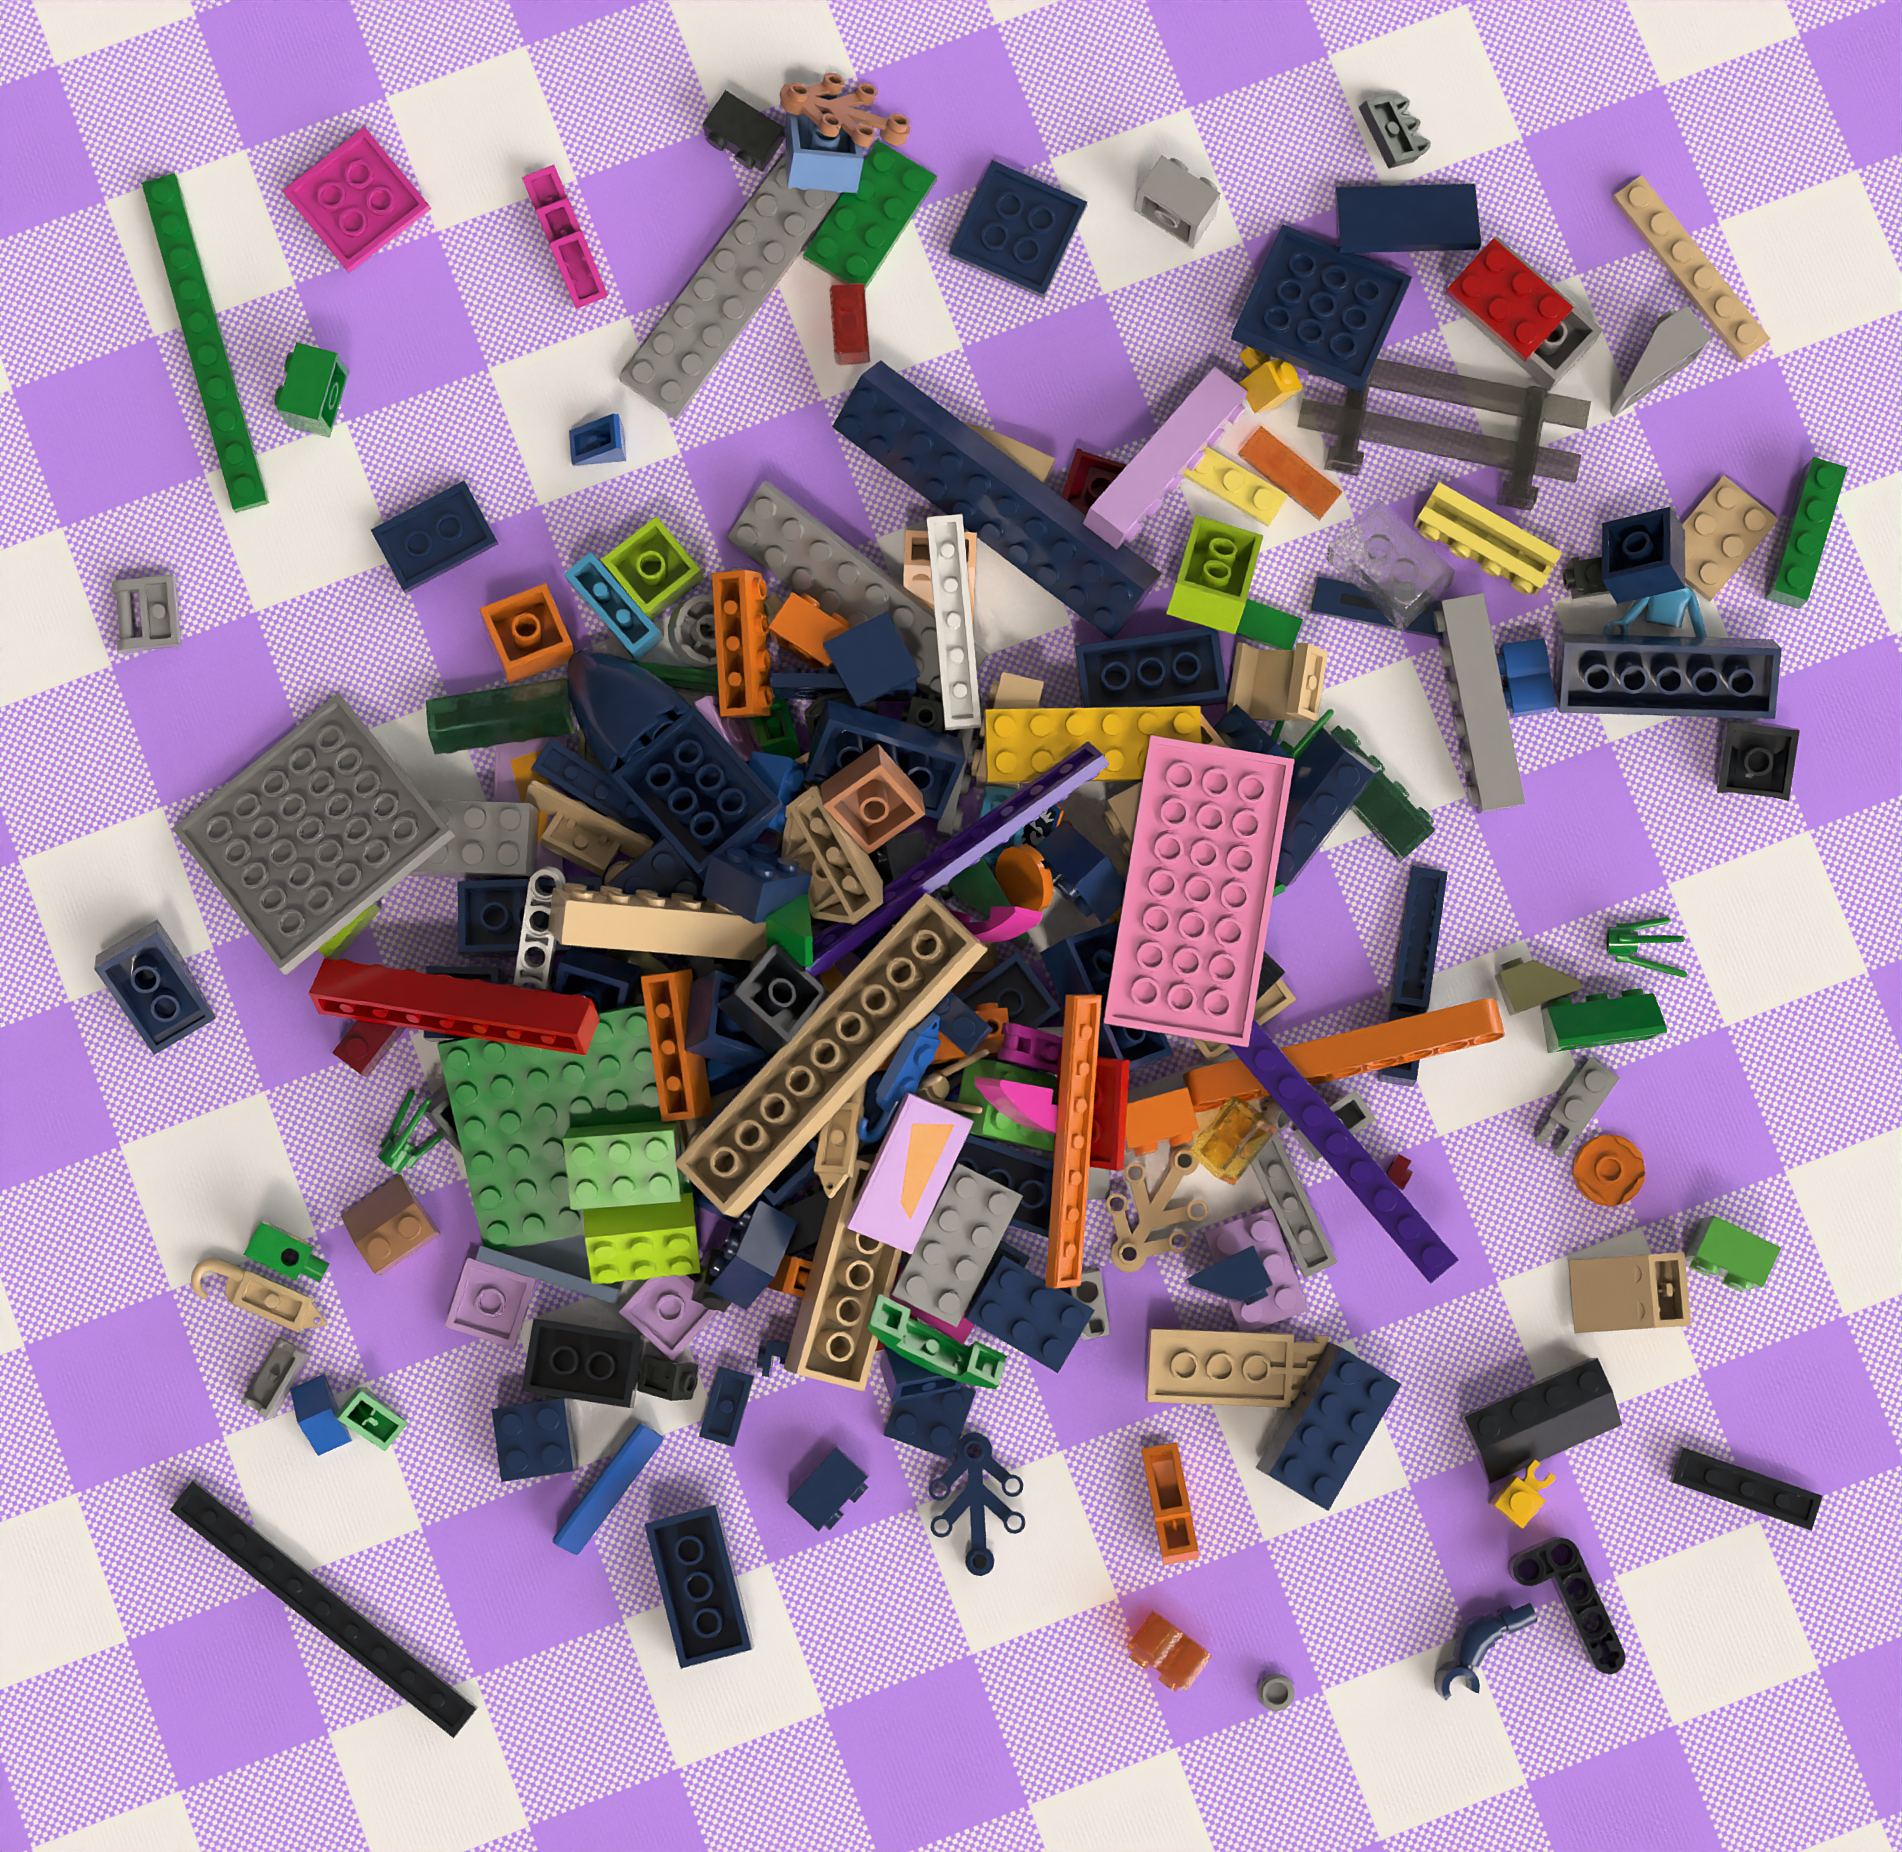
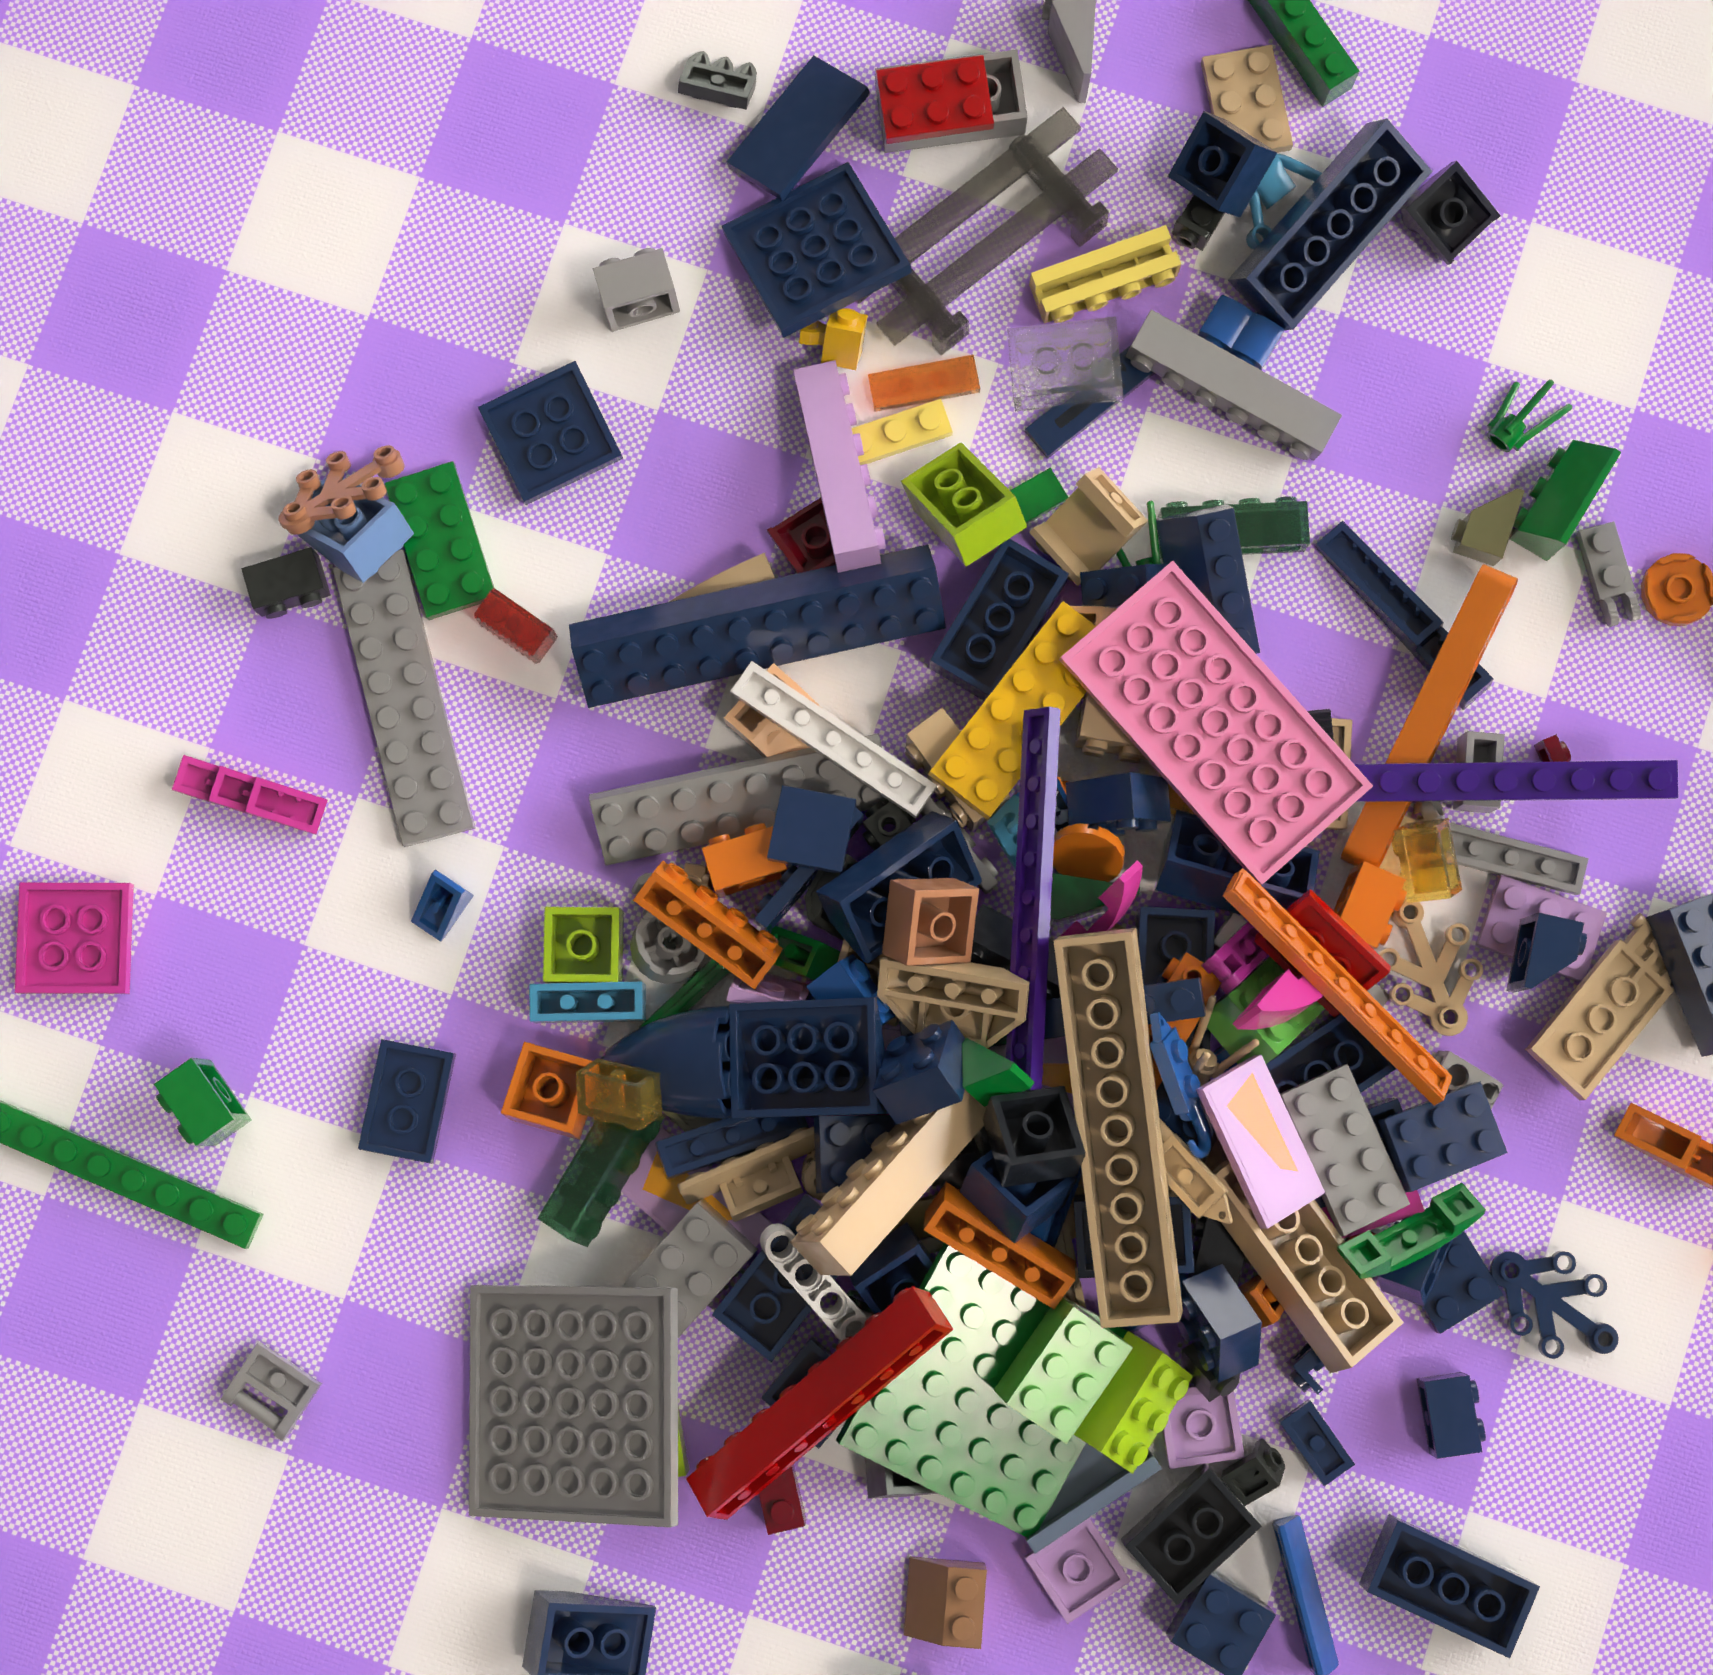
camera: 50 degrees left, 0 degrees up
(396, 1148) = (890, 1544): green plant -> none
(562, 680) = (619, 1094): none -> clear yellow brick

